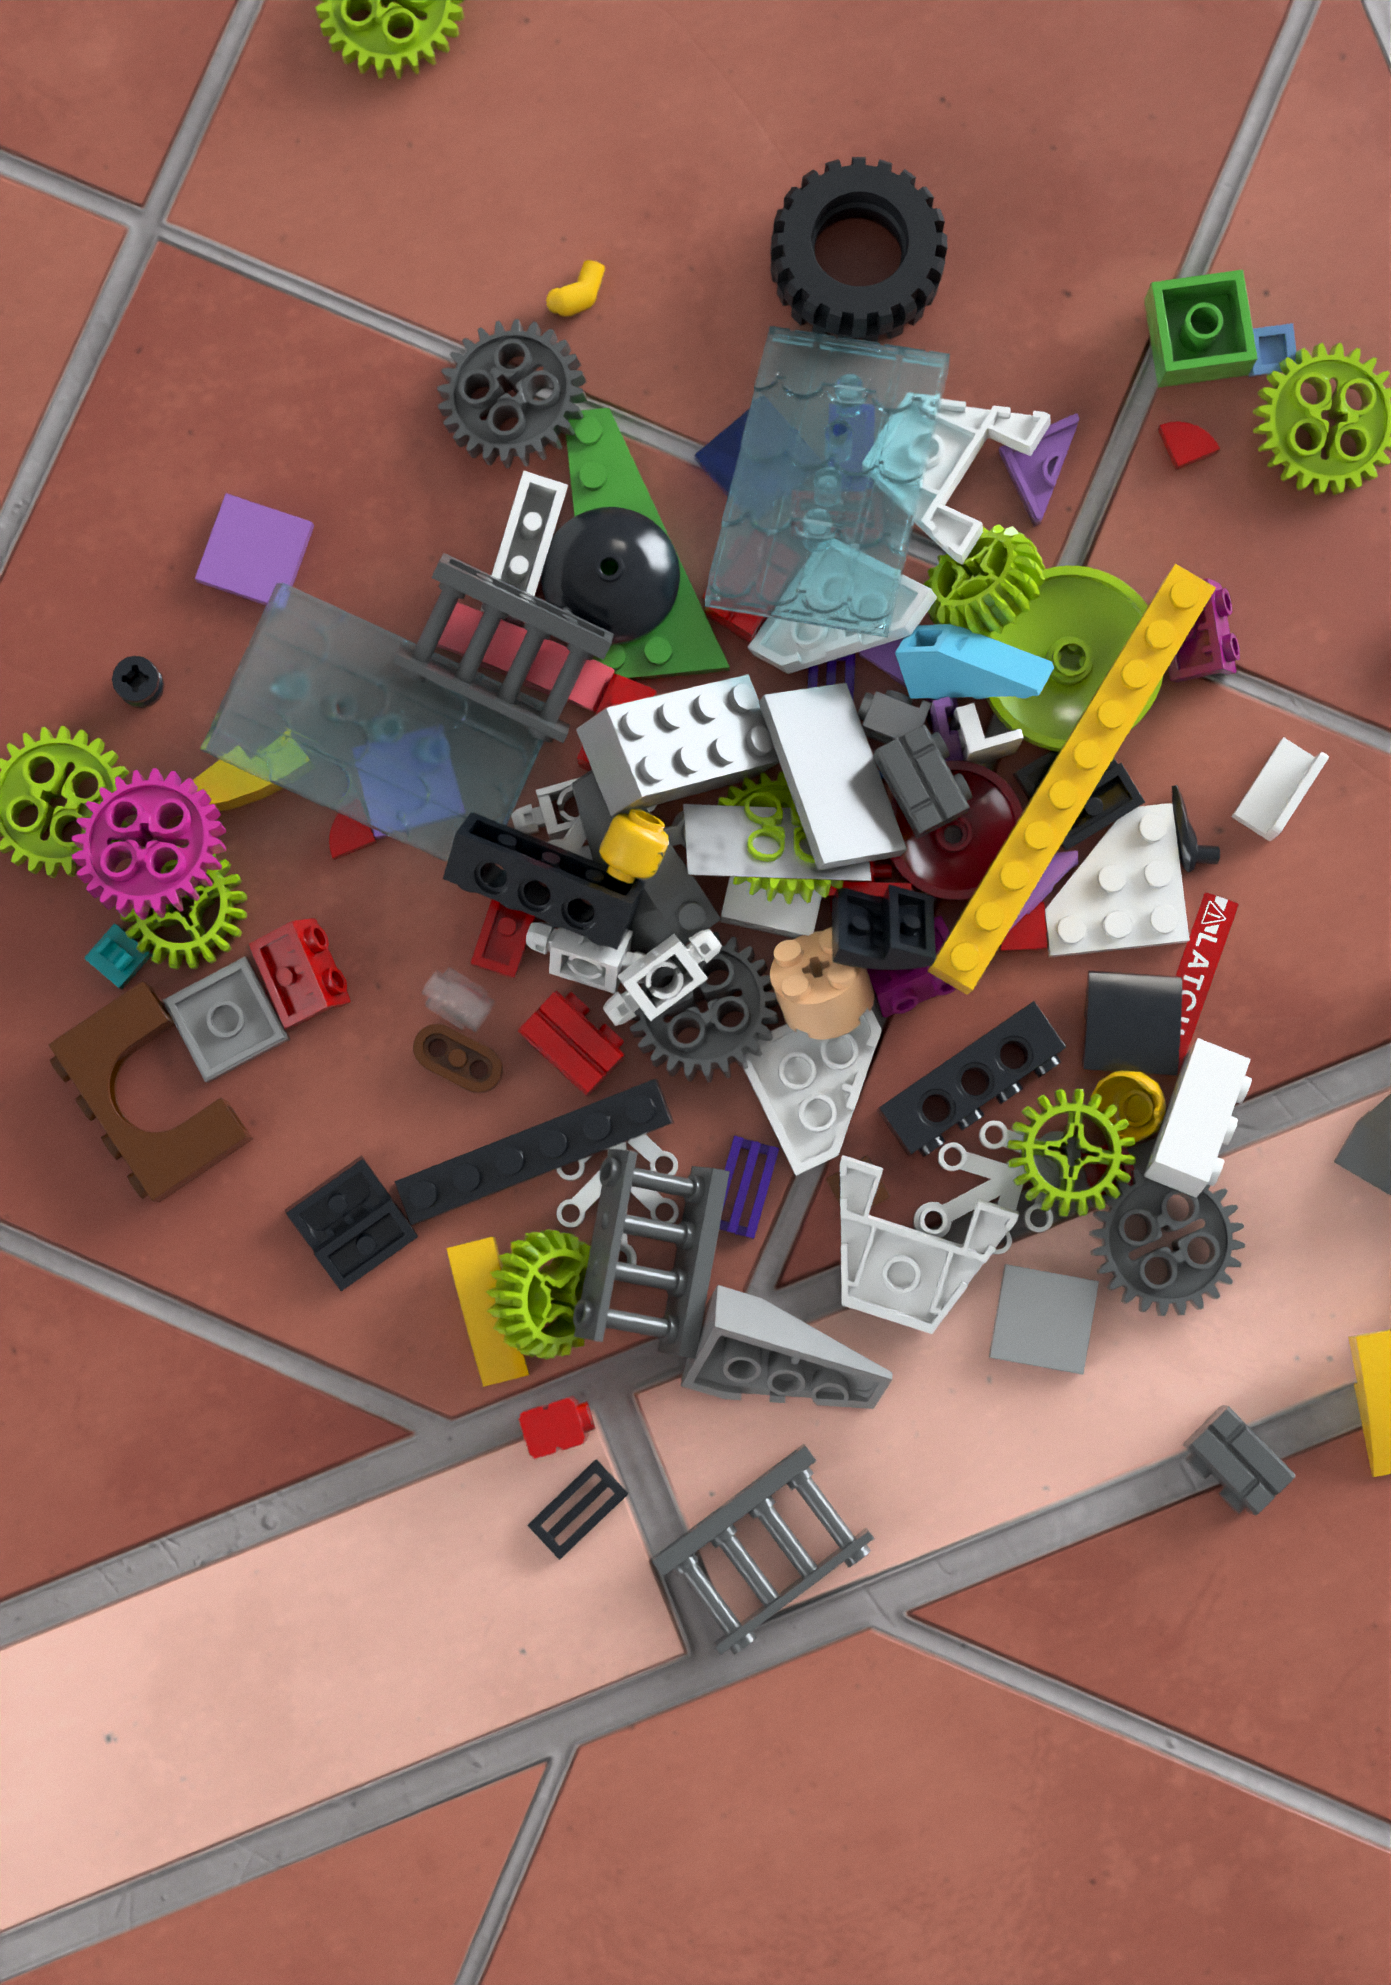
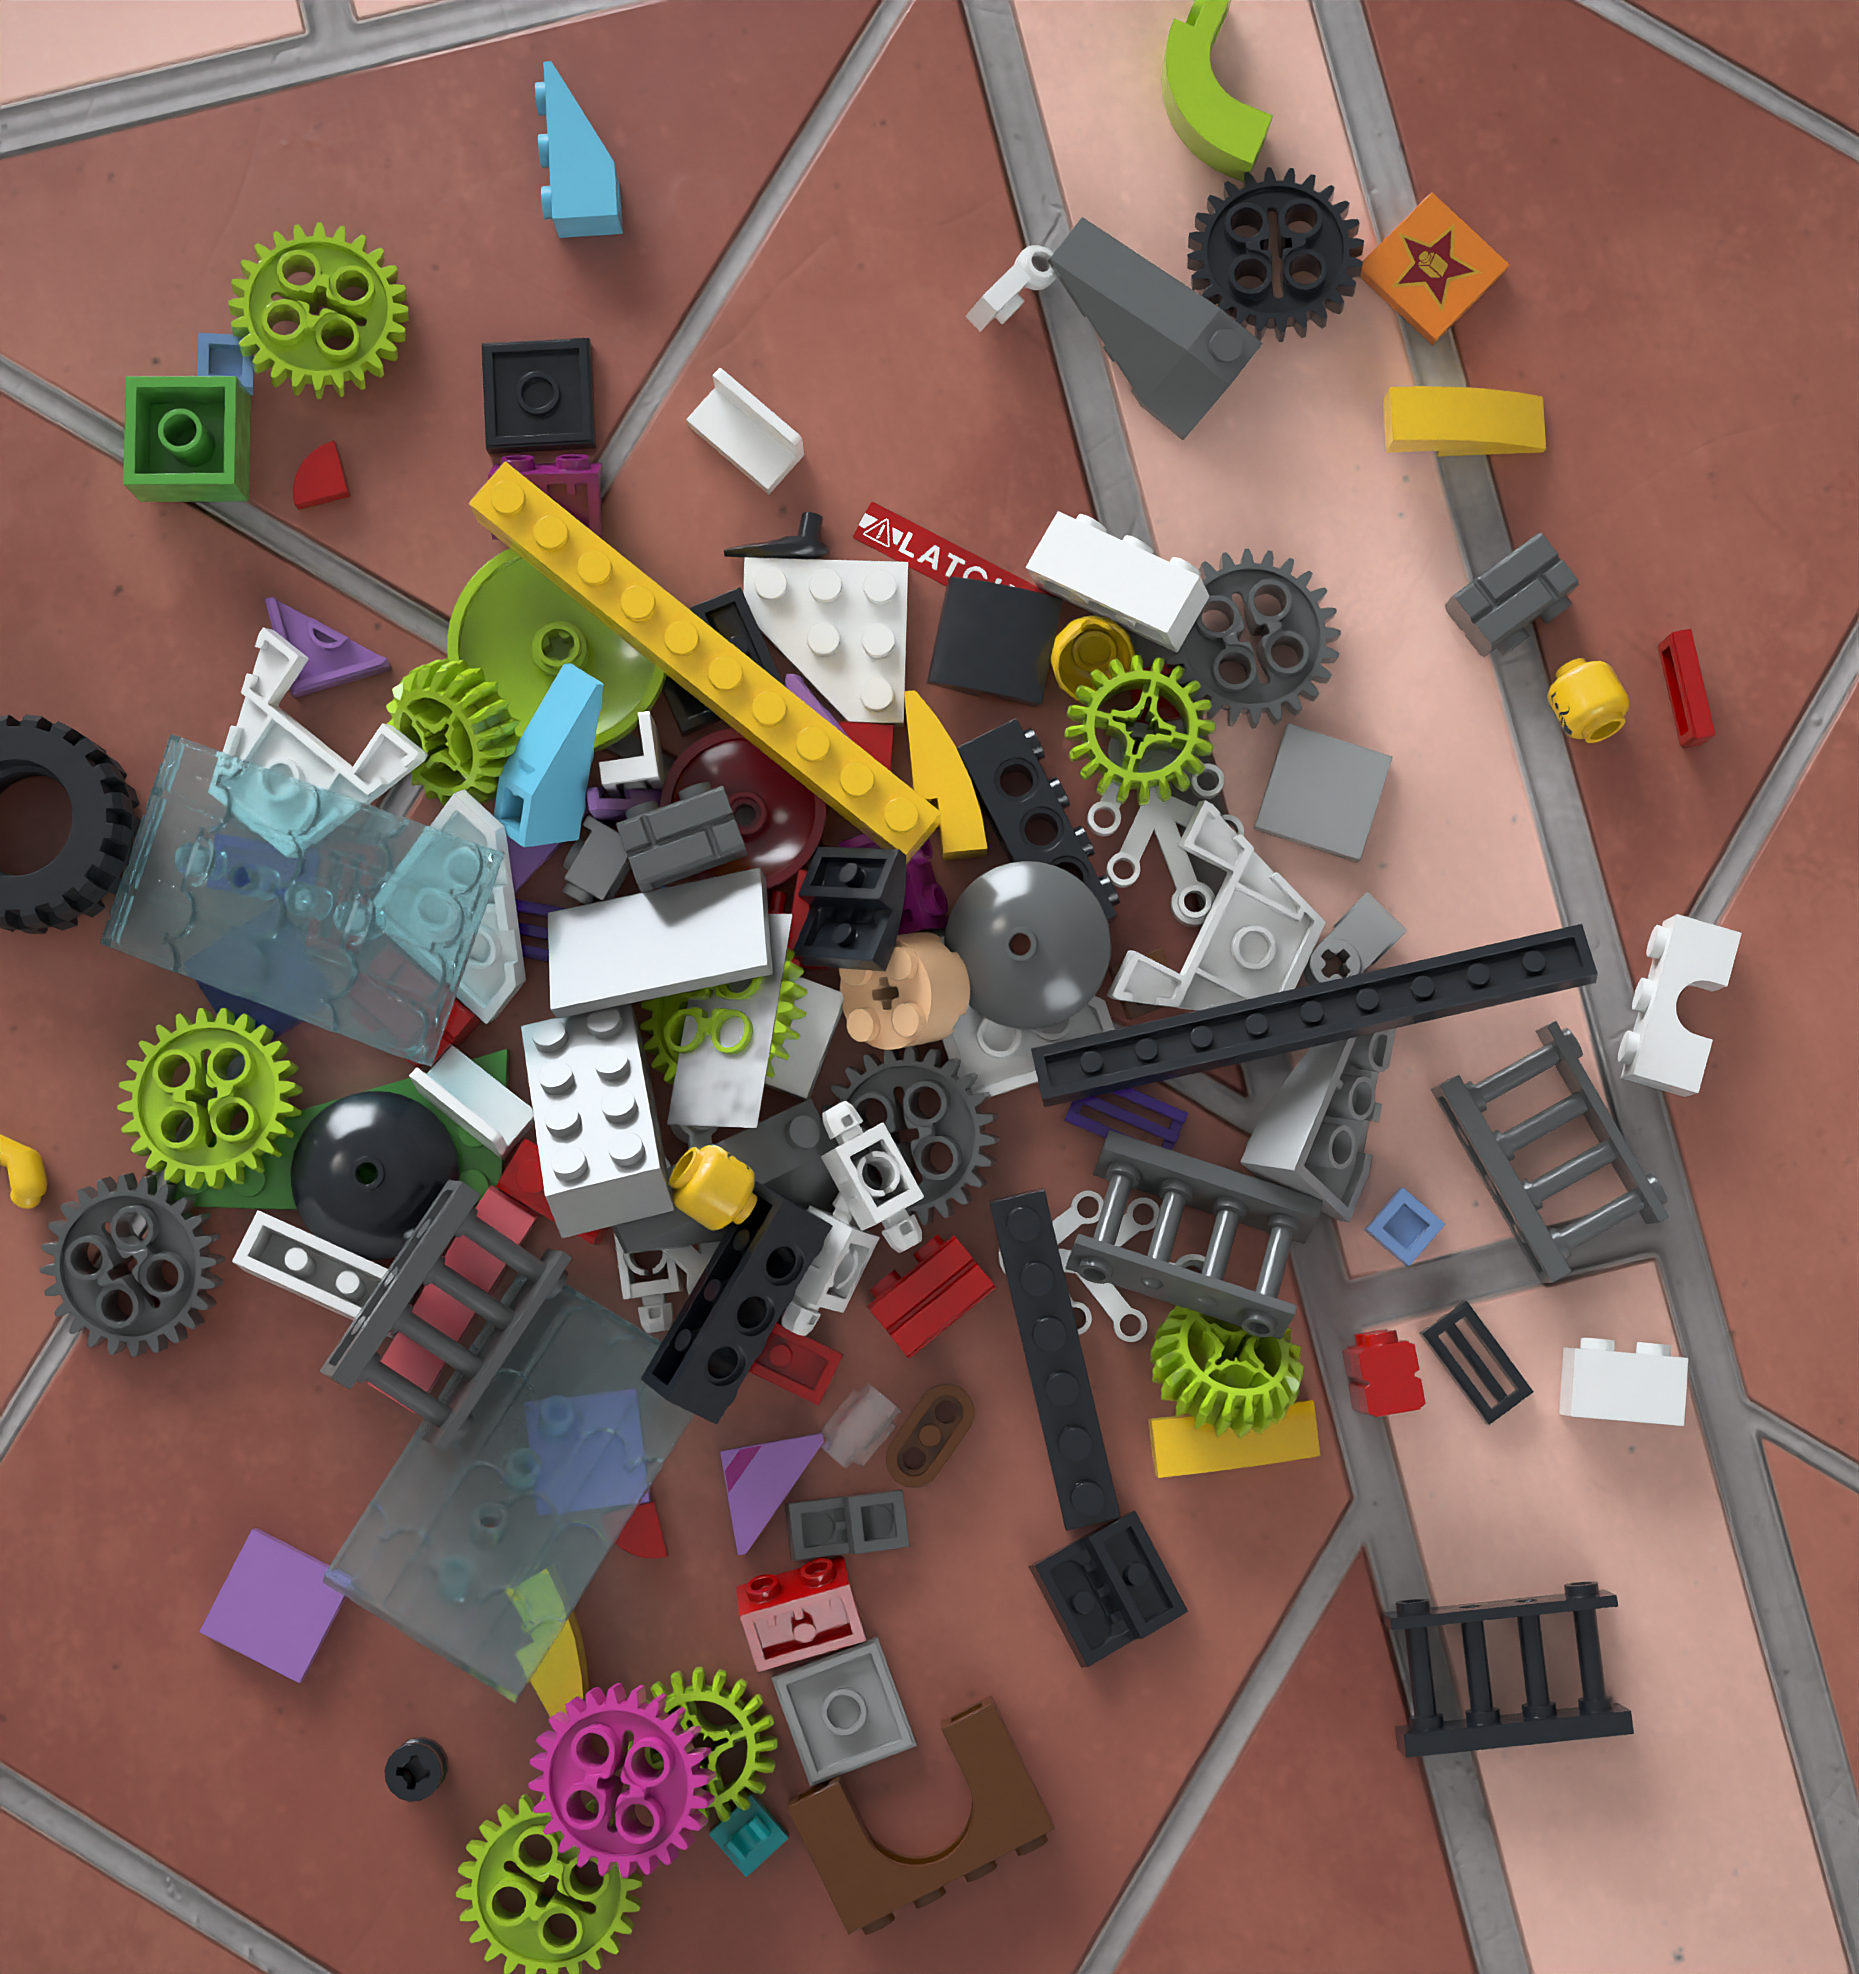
camera: 85 degrees left, 0 degrees up
(289, 1596) = (1539, 1718): none -> black fence
(376, 1001) = (846, 1524): none -> dark grey slope
(403, 925) = (760, 1479): none -> medium lavender tile
(575, 1635) = (1623, 1385): none -> white brick
(666, 471) = (161, 1106): none -> lime gear
(681, 646) = (475, 1101): none -> white panel
(683, 1433) = (1404, 1227): none -> medium blue plate
(849, 1331) = (1314, 1015): none -> black plate
(863, 1634) = (1660, 1048): none -> white arch
(883, 1111) = (1066, 936): none -> dark grey dish
(922, 1364) = (1357, 940): none -> light grey piece
(1004, 994) = (943, 782): none -> yellow slope
(1156, 1537) = (1588, 700): none -> yellow head
(1179, 1621) = (1686, 689): none -> red tile
(1285, 612) = (538, 395): none -> black tile

